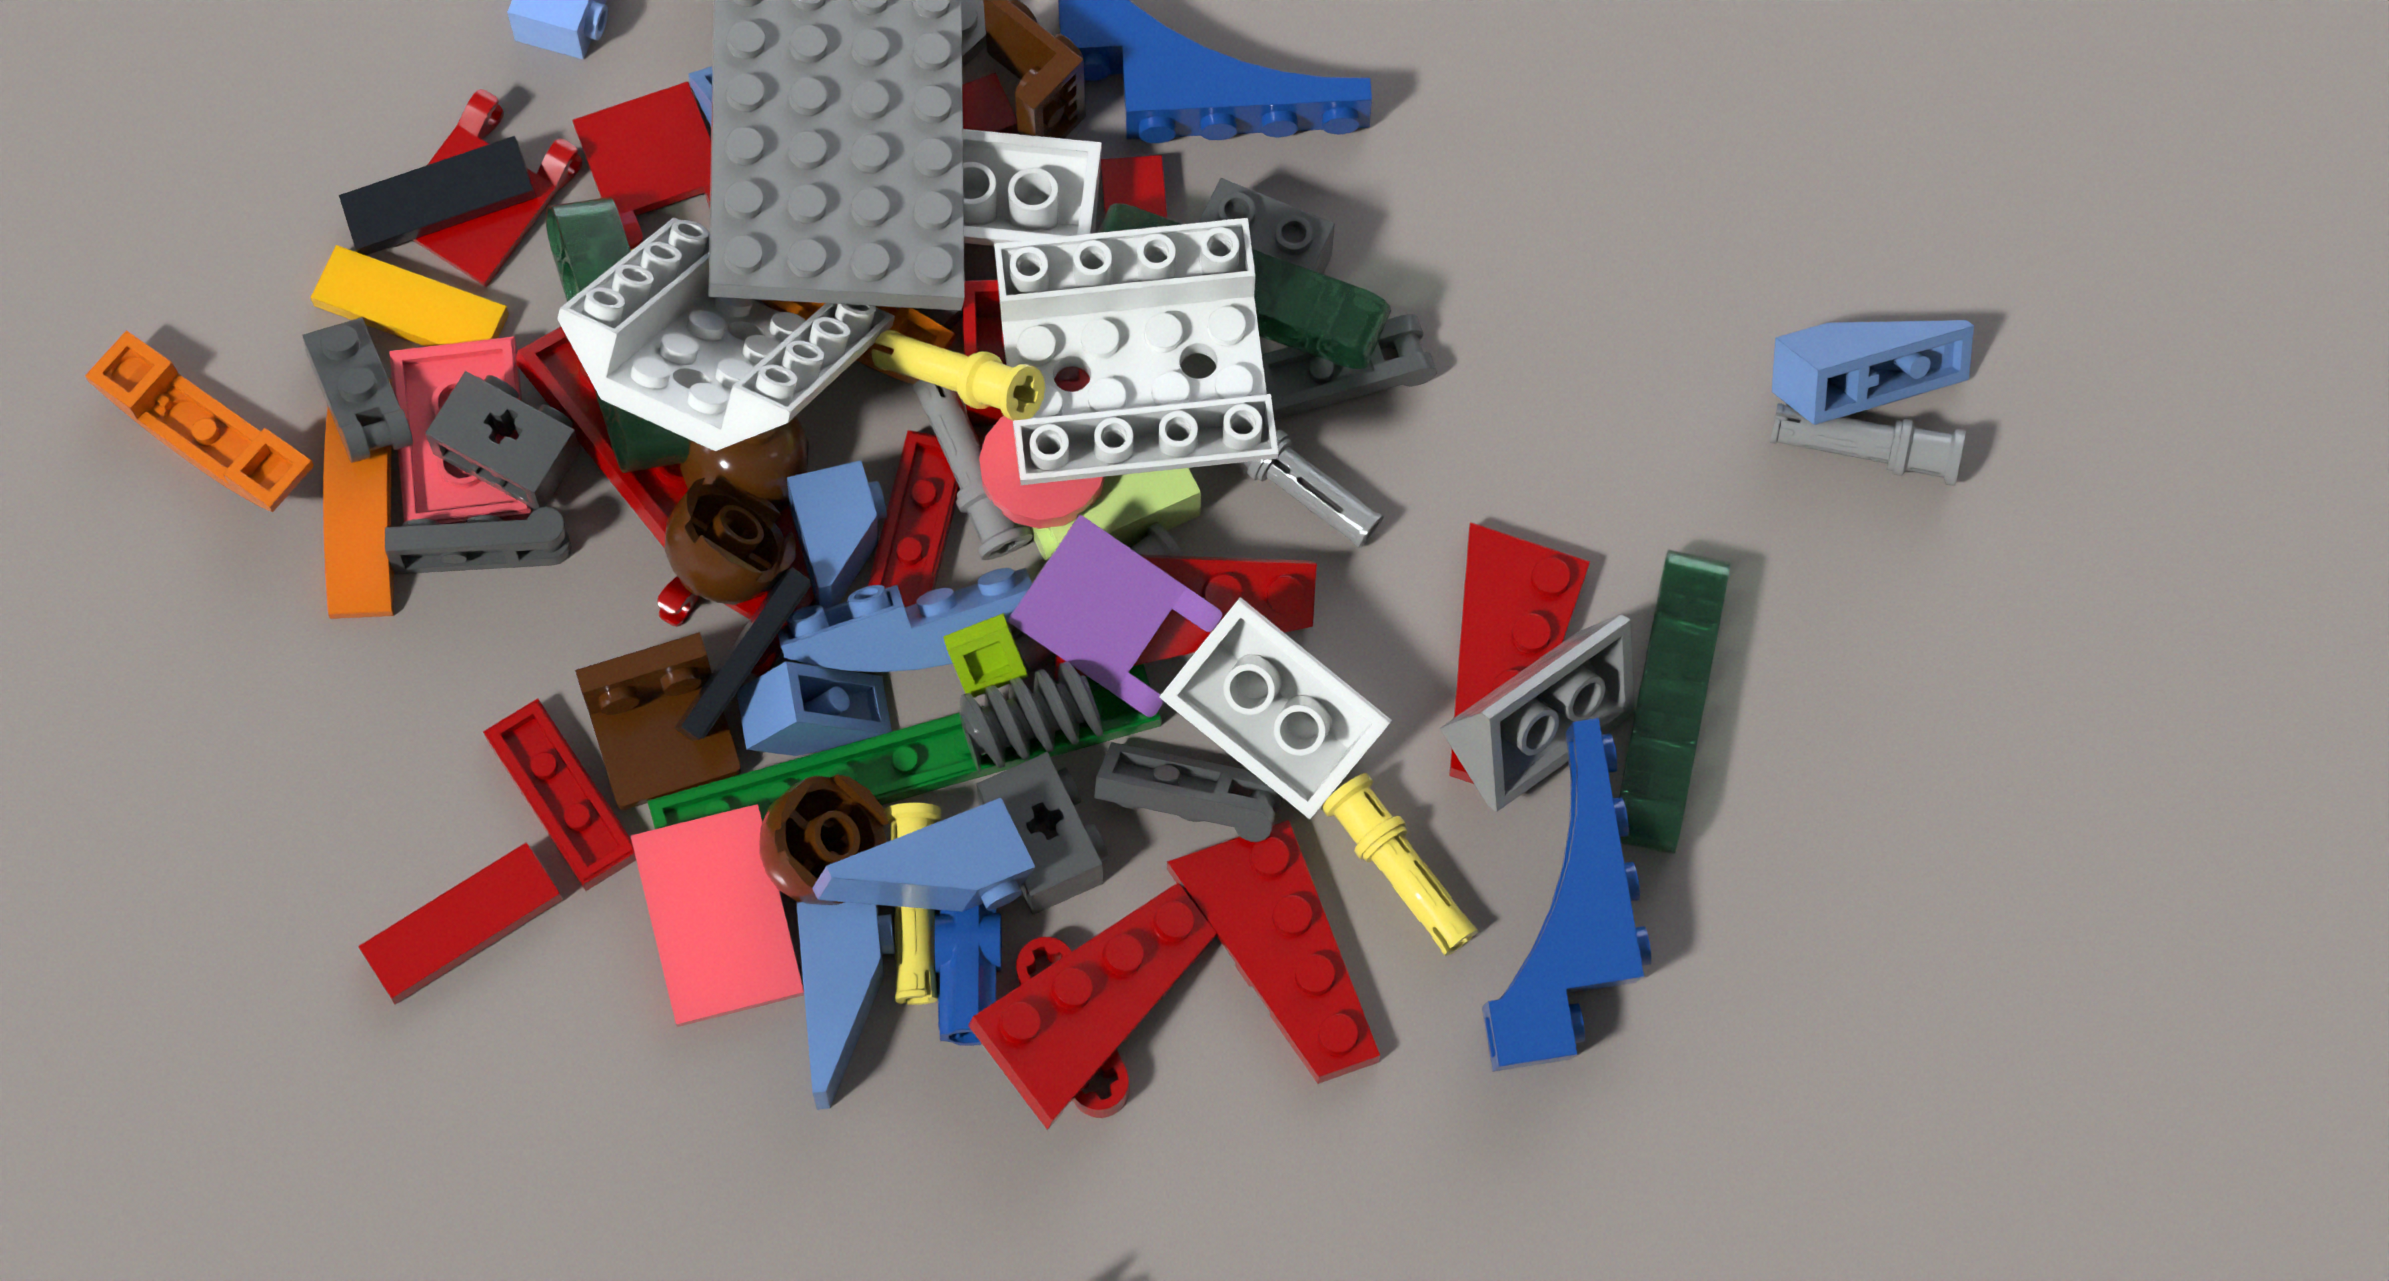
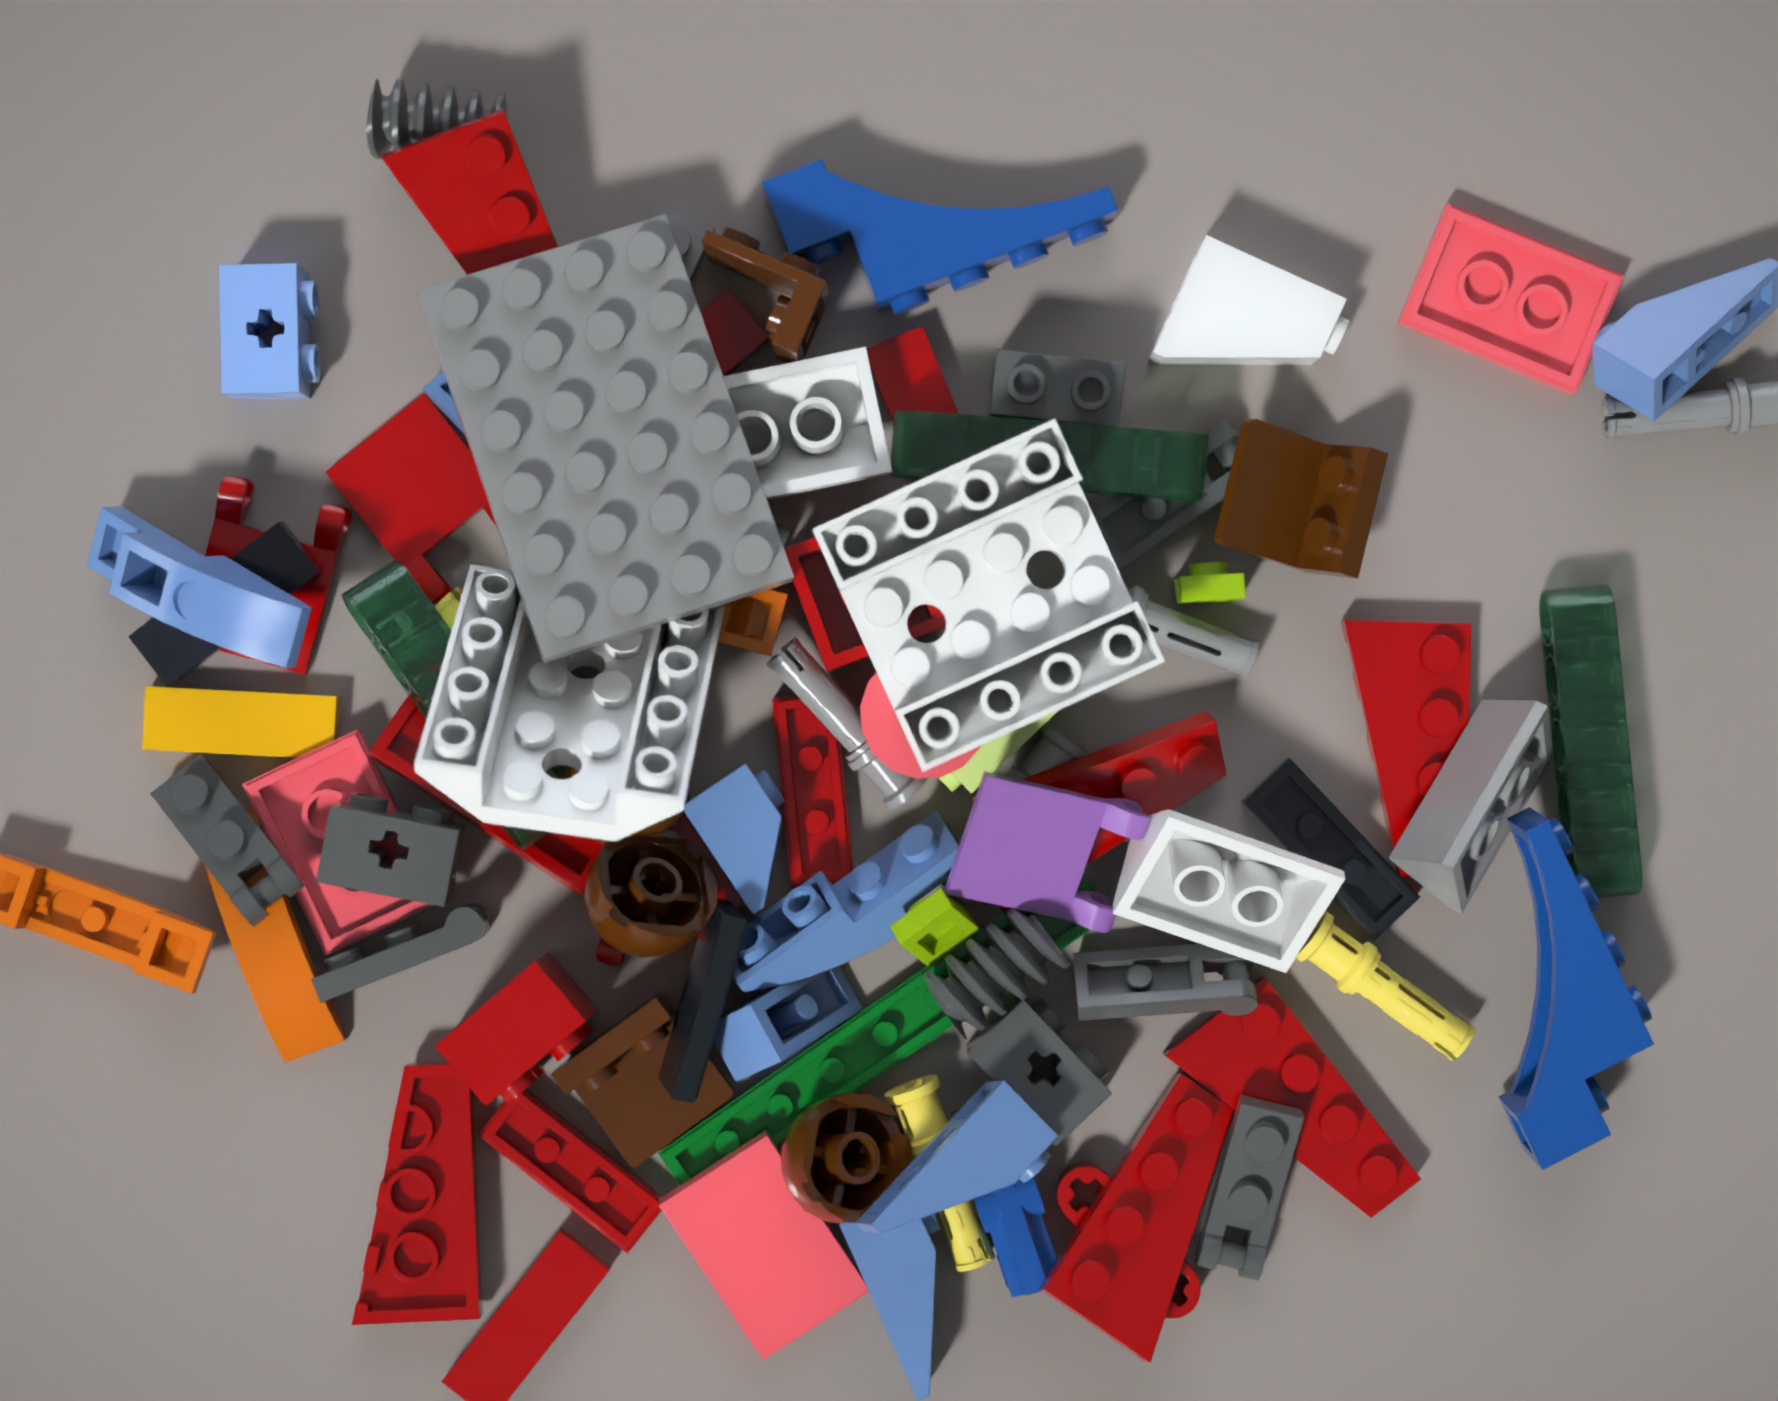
camera: 15 degrees left, 20 degrees up
(404, 795) = (426, 1221): none -> red wing
(421, 161) = (197, 592): none -> medium blue slope
(557, 625) = (523, 1022): none -> red brick
(977, 378) = (839, 665): light yellow pin -> none
(1208, 1006) = (1249, 1185): none -> dark grey plate
(1350, 452) = (1209, 584): none -> lime plate
(1406, 751) = (1317, 830): none -> black tile
(1455, 395) = (1300, 500): none -> reddish brown bracket
(1461, 231) = (1247, 314): none -> white slope
(1713, 296) = (1510, 299): none -> coral tile

